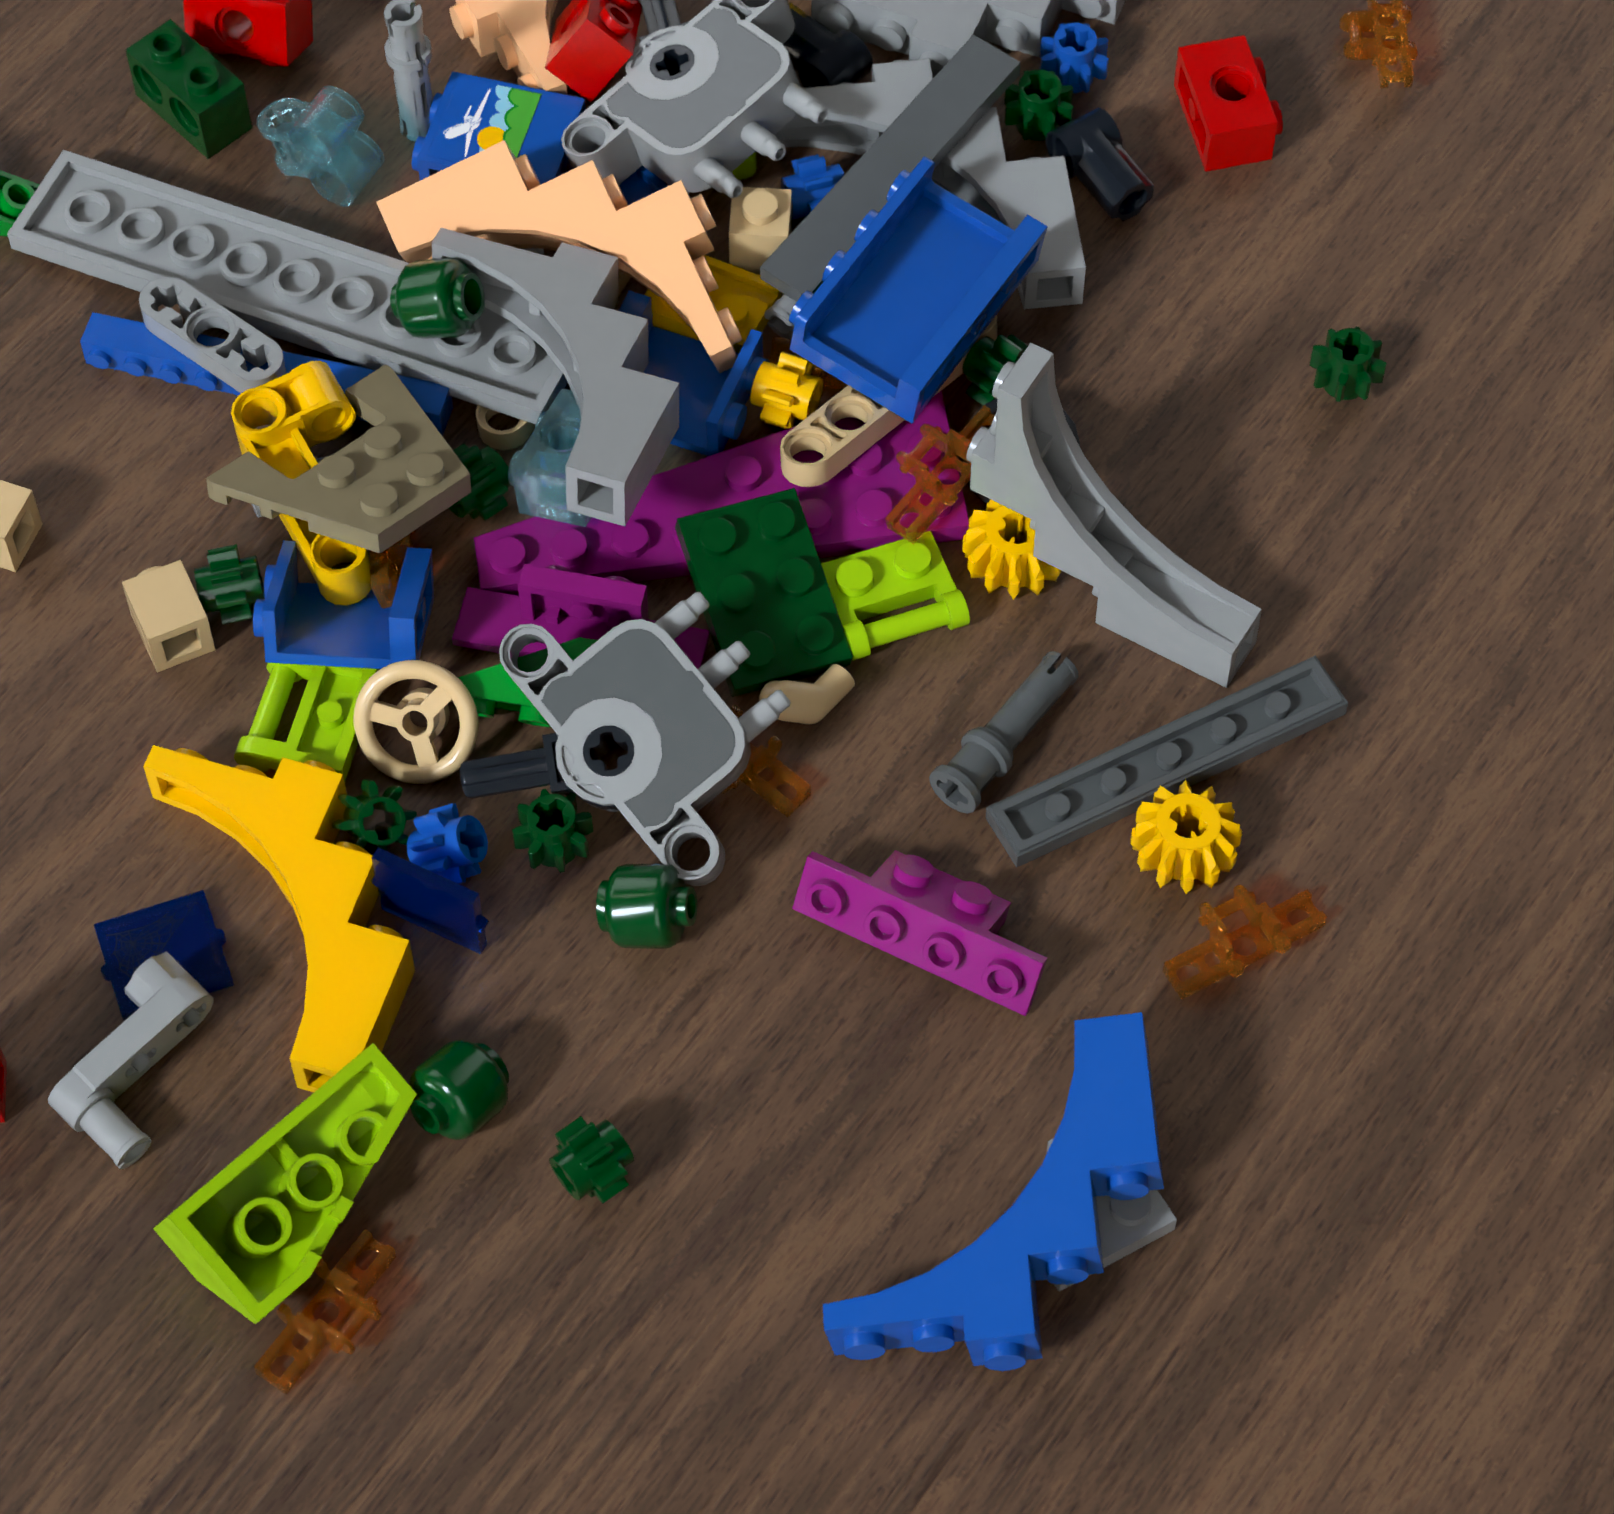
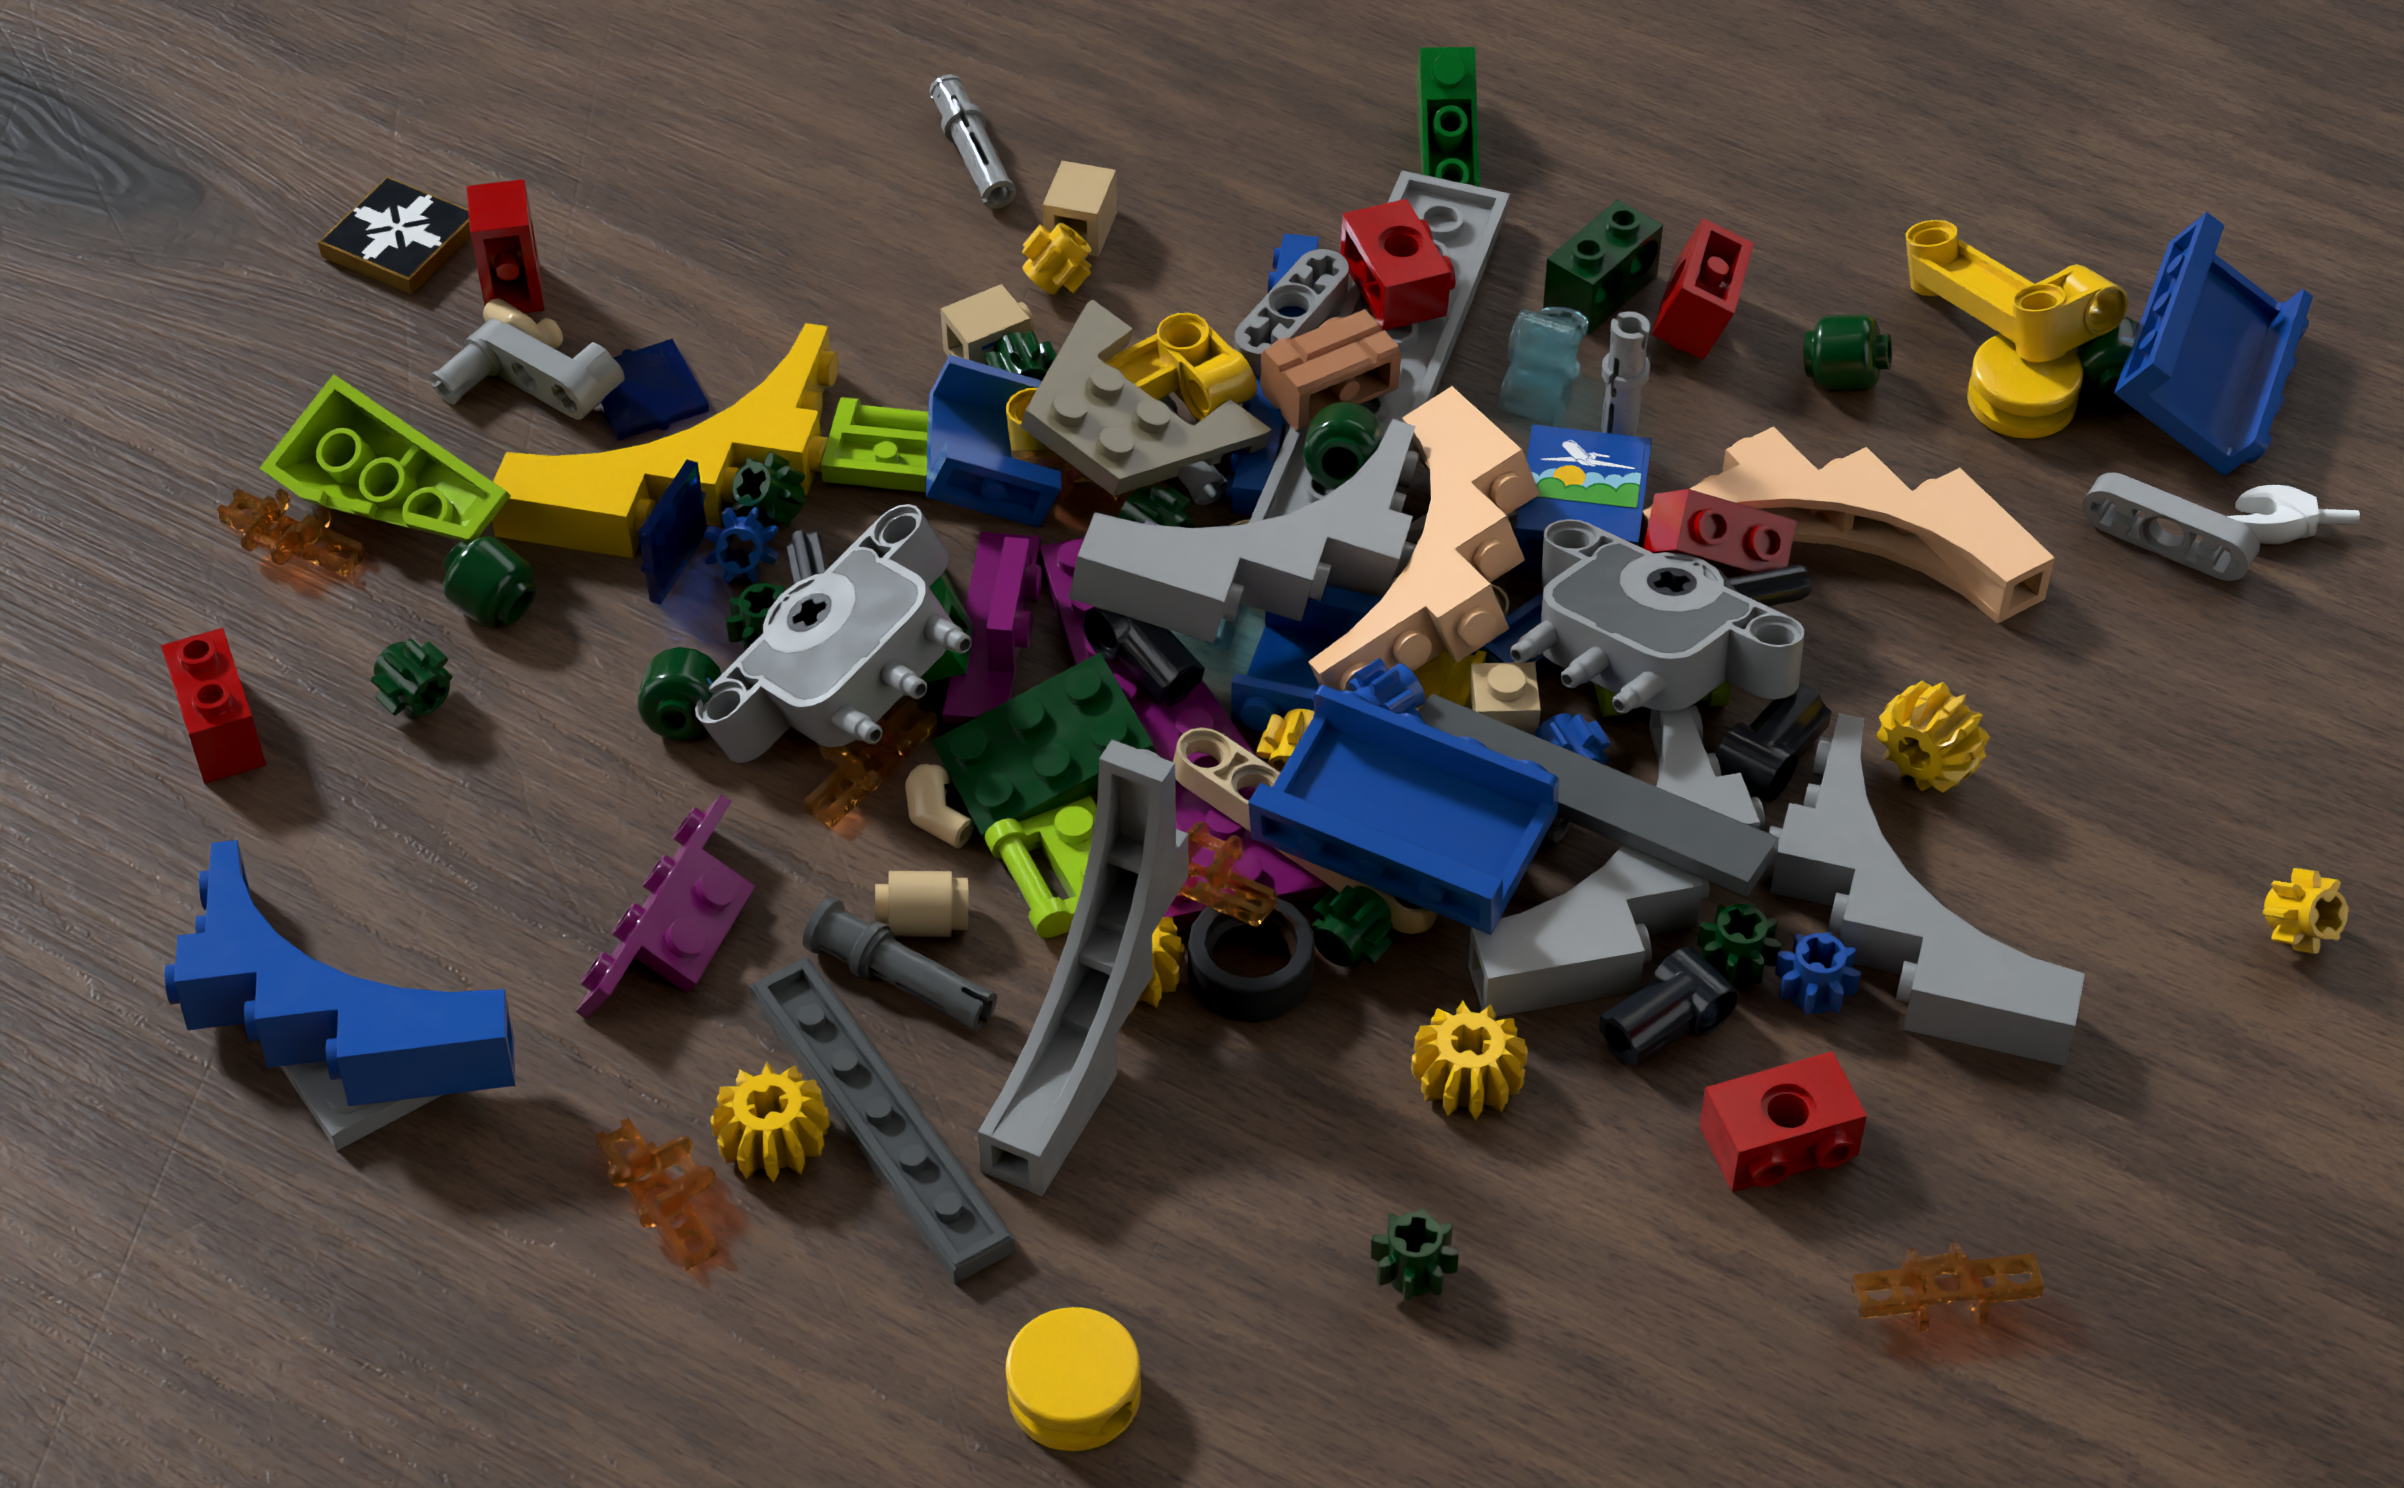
camera: 85 degrees right, 10 degrees down
(35, 1086) = (544, 331): none -> tan arm
(71, 543) = (1056, 258): none -> yellow gear
(178, 235) = (1396, 264): none -> red brick
(322, 302) = (1329, 365): none -> nougat brick
(432, 705) = (877, 500): tan piece -> none
(605, 1357) = (213, 705): none -> red brick
(676, 484) = (1147, 651): none -> black piece
(766, 299) = (1390, 689): none -> blue gear
(935, 706) = (922, 903): none -> tan brick
(1149, 305) = (1469, 1060): none -> yellow gear
(1464, 616) = (1073, 1379): none -> yellow head

